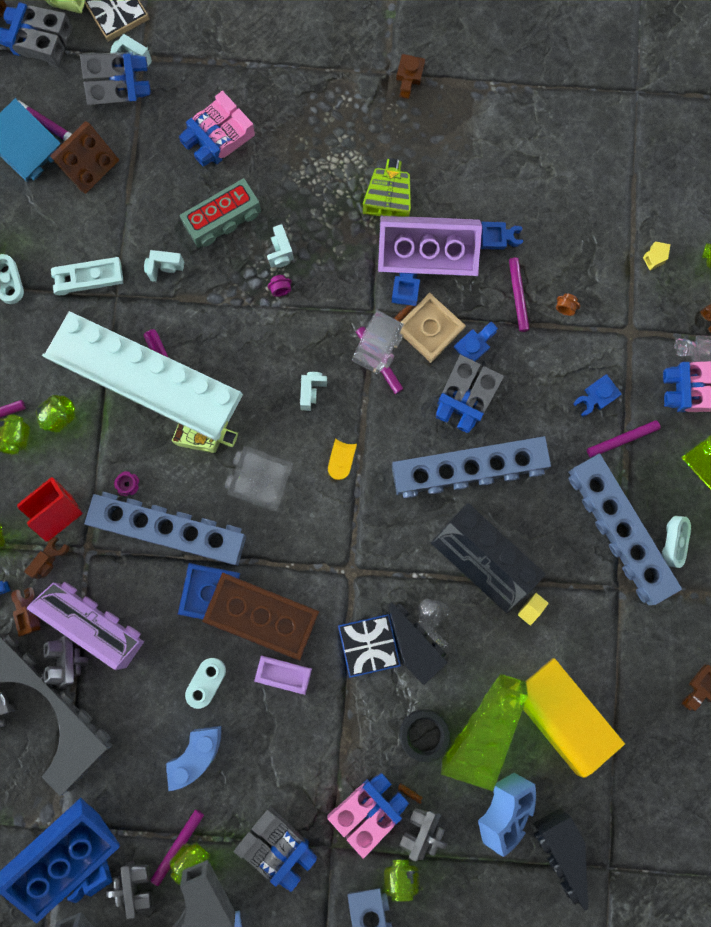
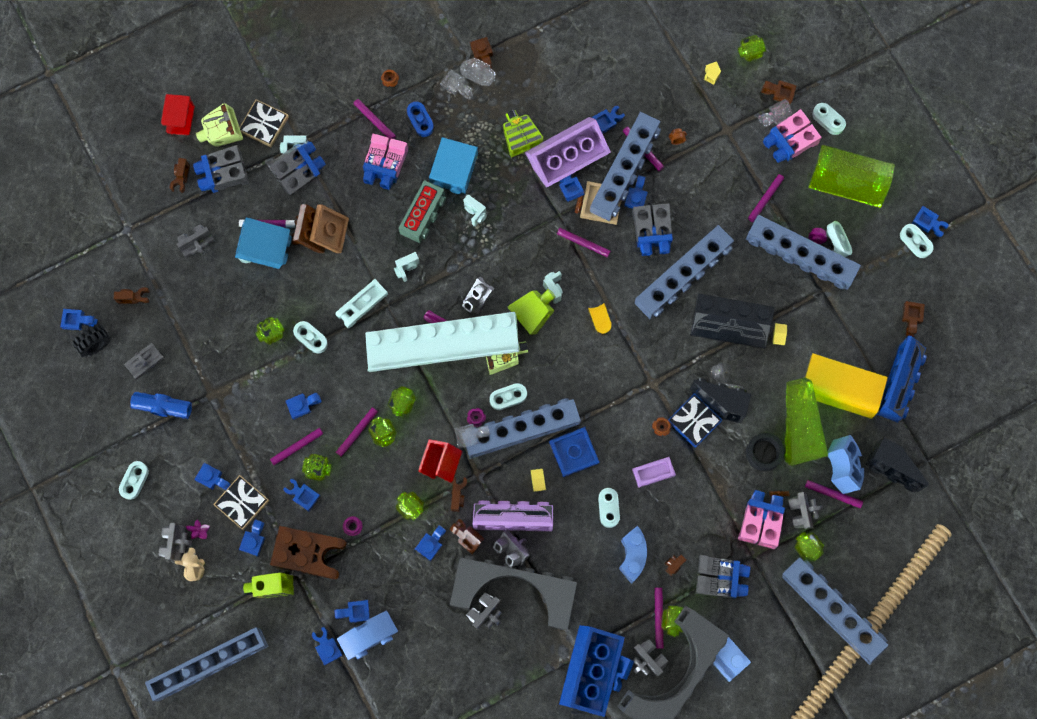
camera: 30 degrees left, 5 degrees down
(98, 501) = (468, 435): none -> clear plate
(103, 169) = (329, 229): none -> medium nougat tile
(146, 600) = (538, 480): none -> light yellow piece
(177, 483) = (508, 397): none -> light aqua plate
(216, 347) = (477, 296): none -> flat silver hips
(229, 801) = (674, 564): none -> reddish brown plate
(239, 78) = (384, 129): none -> magenta bar
(259, 478) = (558, 361): clear plate -> none
(260, 616) = (616, 444): reddish brown tile -> none
(267, 403) = (533, 310): none -> lime torso
(280, 285) = (490, 234): magenta plate -> none
(286, 36) = (390, 74): none -> dark orange plate
(288, 109) = (420, 120): none -> blue plate
(289, 183) = (453, 165): none -> dark azure brick
(321, 623) = (656, 426): none -> dark orange plate
(354, 91) = (456, 83): none -> clear plate
(378, 342) = (577, 230): clear brick -> none
(388, 92) = (477, 72): none -> clear bracket
(473, 836) = (834, 494): none -> magenta bar
(534, 266) = (643, 125): none -> sand blue brick
(599, 394) = (733, 179): blue plate -> none
(642, 754) = (902, 379): none -> blue slope
(654, 521) = (818, 235): none -> magenta plate

